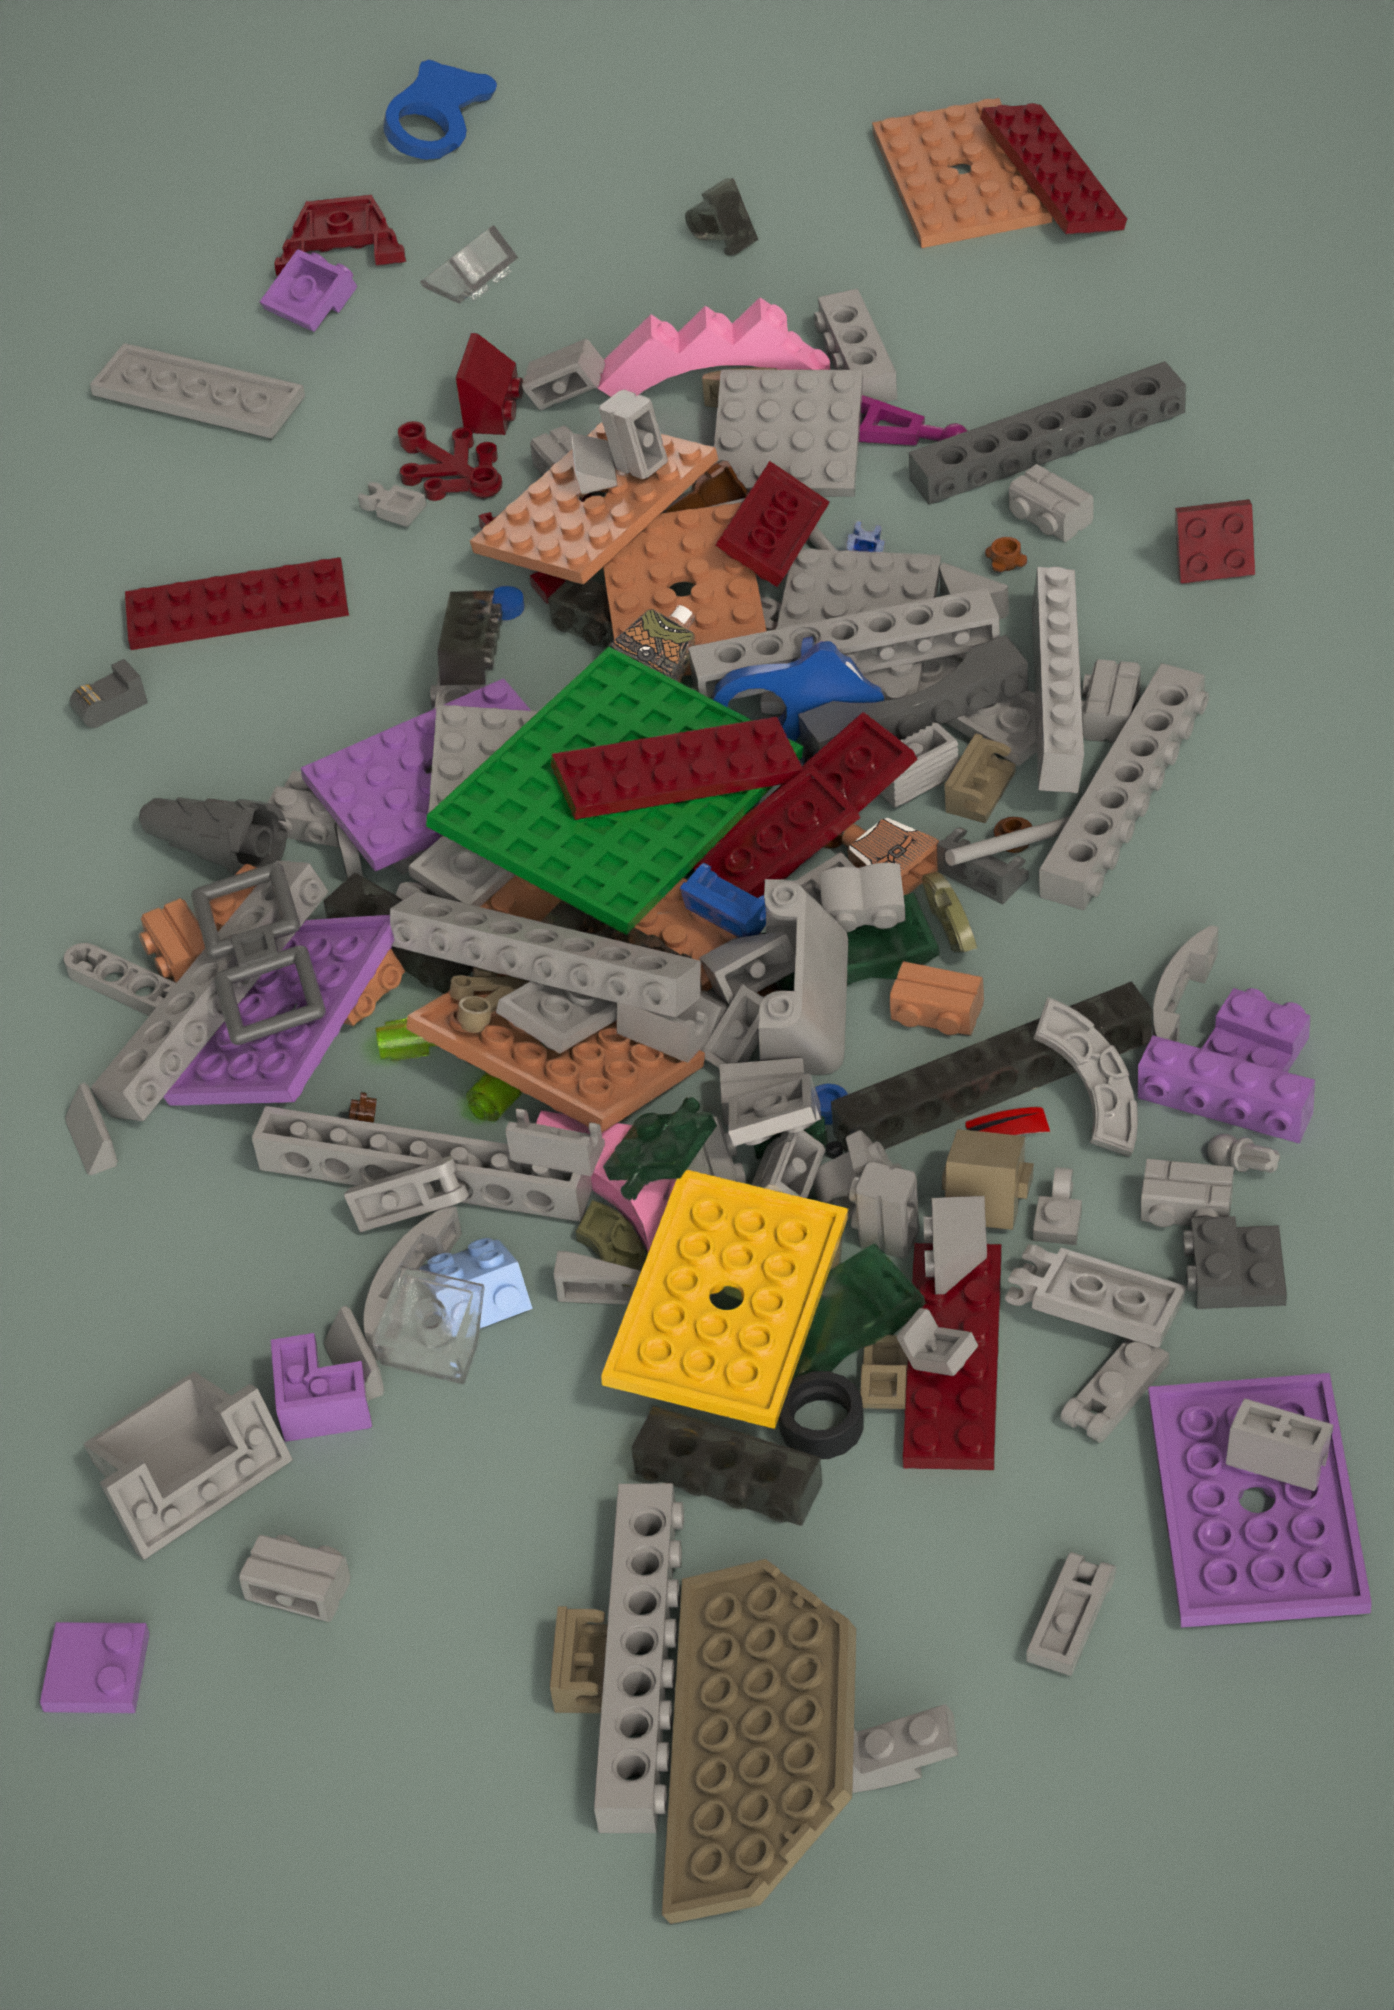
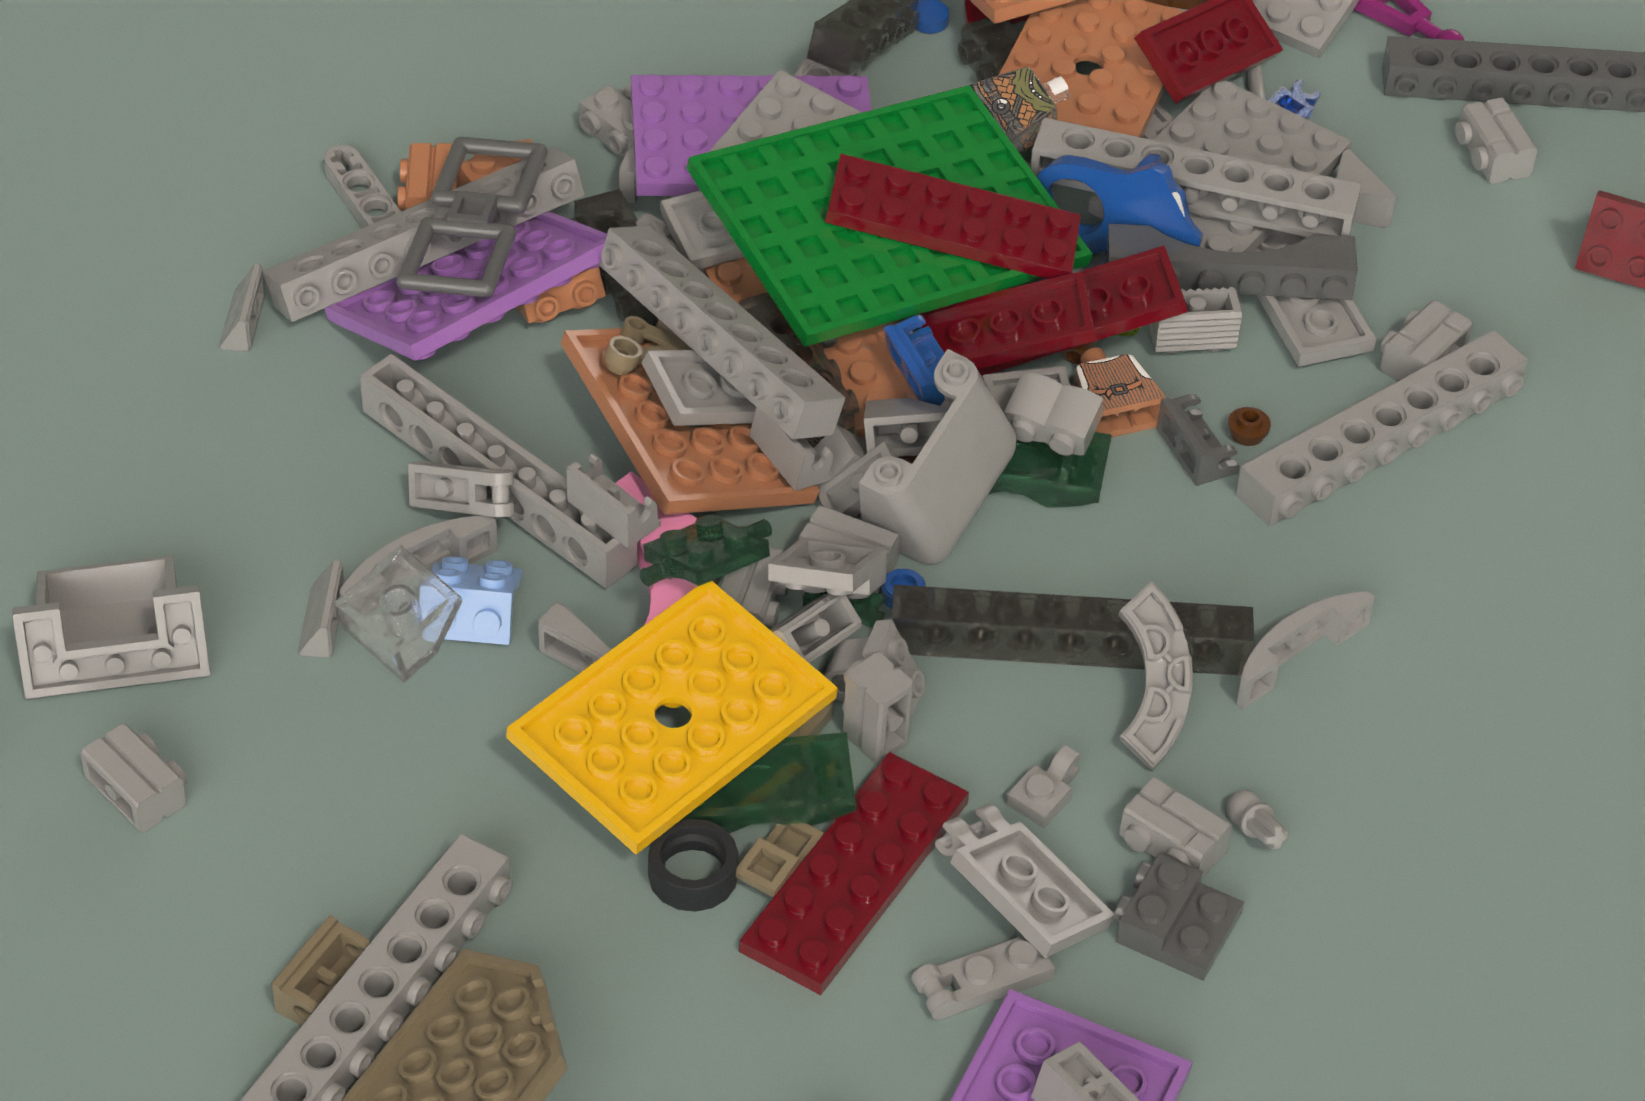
camera: 20 degrees right, 0 degrees up
(218, 829) = (533, 102): dark grey cone -> none
(313, 1398) = (258, 628): medium lavender panel -> none
(363, 1109) = (483, 400): reddish brown plate -> none
(399, 1043) = (552, 357): clear neon green brick -> none
(491, 1098) = (600, 440): clear neon green brick -> none
(611, 1237) = (621, 610): olive tile -> none
(751, 1460) = (575, 869): clear smoke brick -> none
(935, 1347) = (829, 850): light grey bracket -> none
(936, 999) = (1066, 541): nougat brick -> none
(949, 911) = (1131, 467): olive tile -> none
(957, 1239) = (920, 764): light grey slope -> none
(978, 779) = (1248, 360): dark tan hinge -> none
(991, 1168) = (992, 723): dark tan plate -> none
(1005, 842) = (1224, 426): light grey bar -> none
(1006, 554) = (1422, 169): dark orange plate -> none
(1011, 1122) = (1057, 687): red sticker -> none
(1057, 680) = (1379, 301): light grey brick -> none
(1226, 1089) = (1281, 751): medium lavender brick -> none
(1259, 1030) = (1345, 719): medium lavender plate -> none

